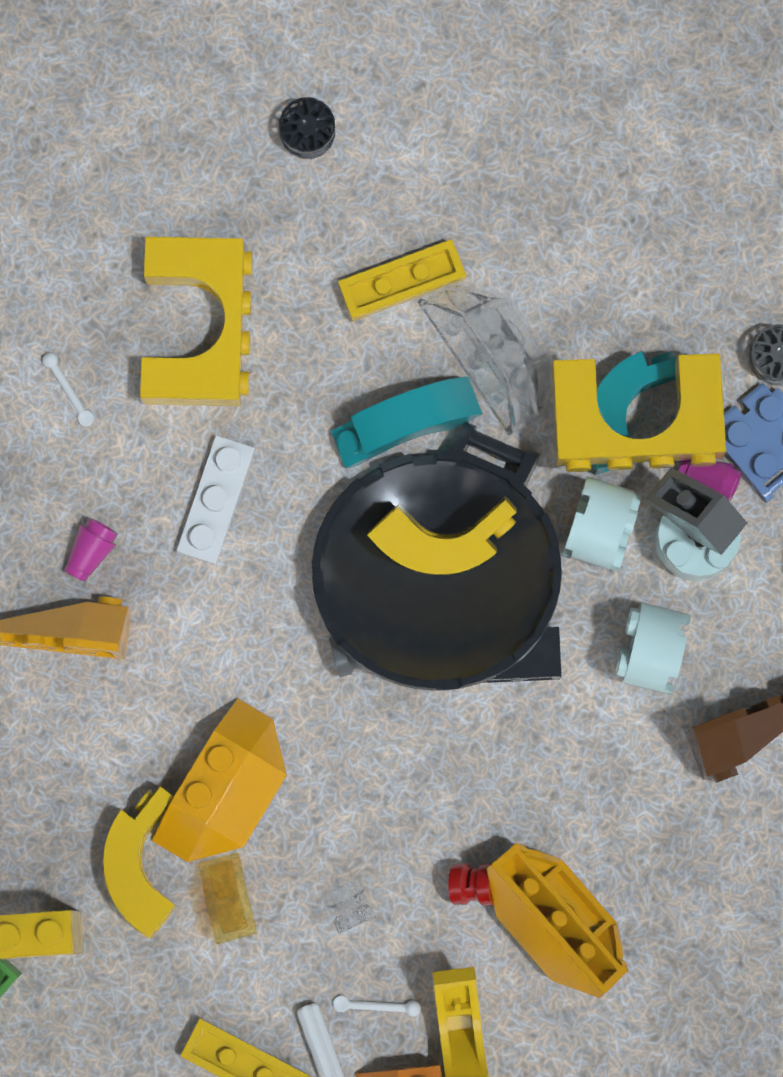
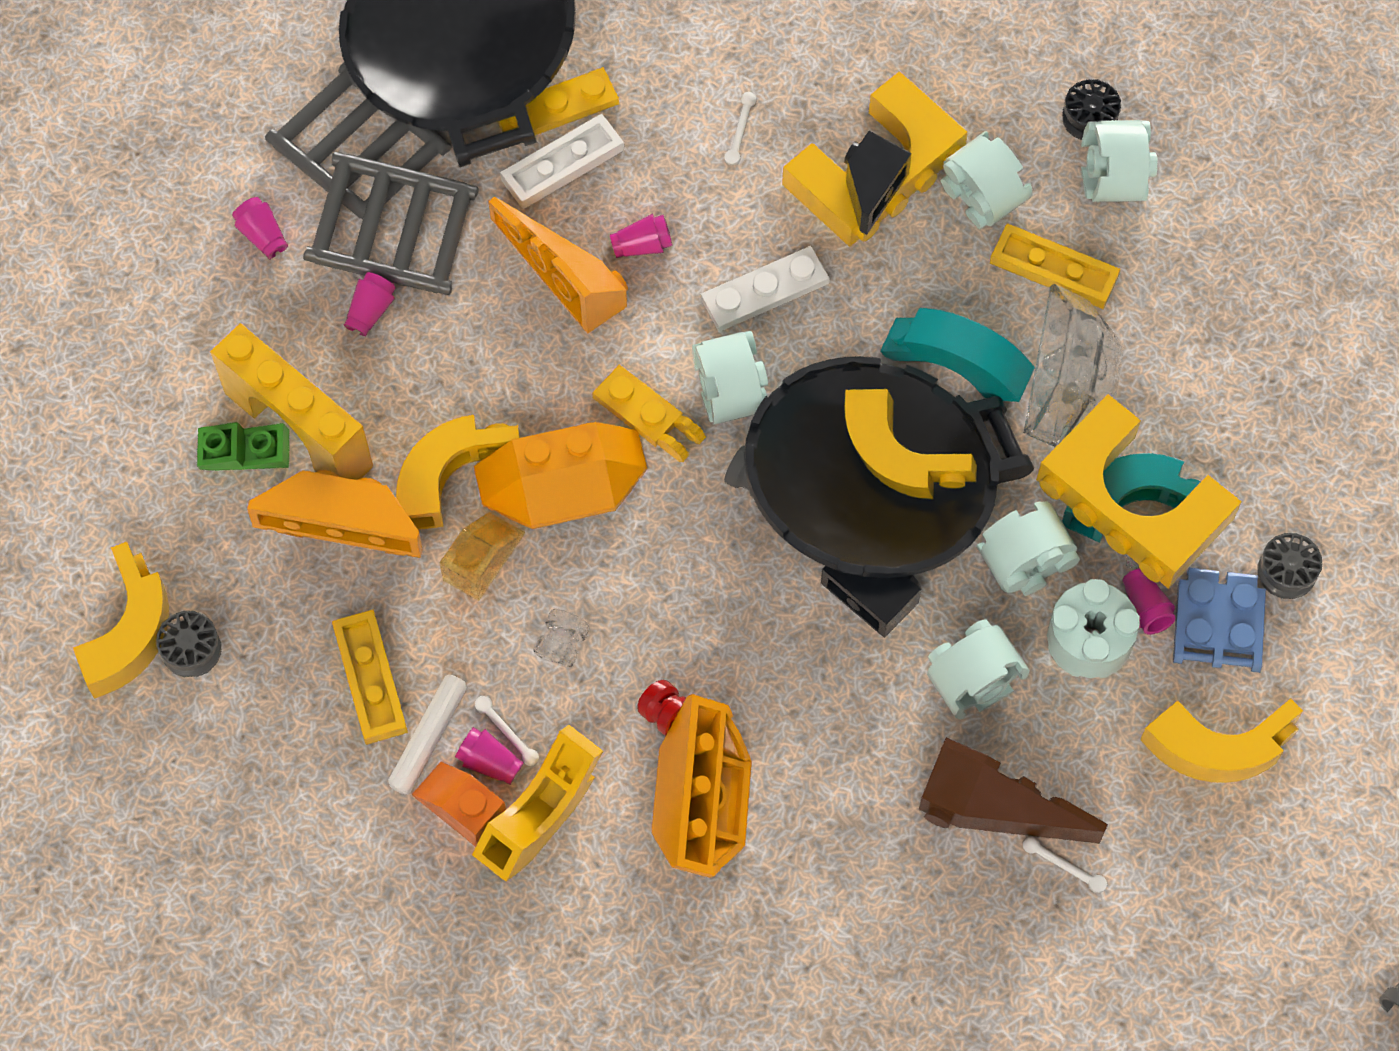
camera: 45 degrees right, 15 degrees down
(109, 980) = (337, 511): none -> light orange wedge
(218, 347) = (874, 176): none -> black slope
(229, 679) = (646, 412): none -> yellow hinge
(269, 600) = (730, 376): none -> light aqua brick
(293, 263) = (985, 180): none -> light aqua brick
(371, 156) = (1118, 160): none -> light aqua brick
(386, 1038) = (487, 756): none -> dark pink cone
(697, 510) = (1110, 595): dark grey slope -> none

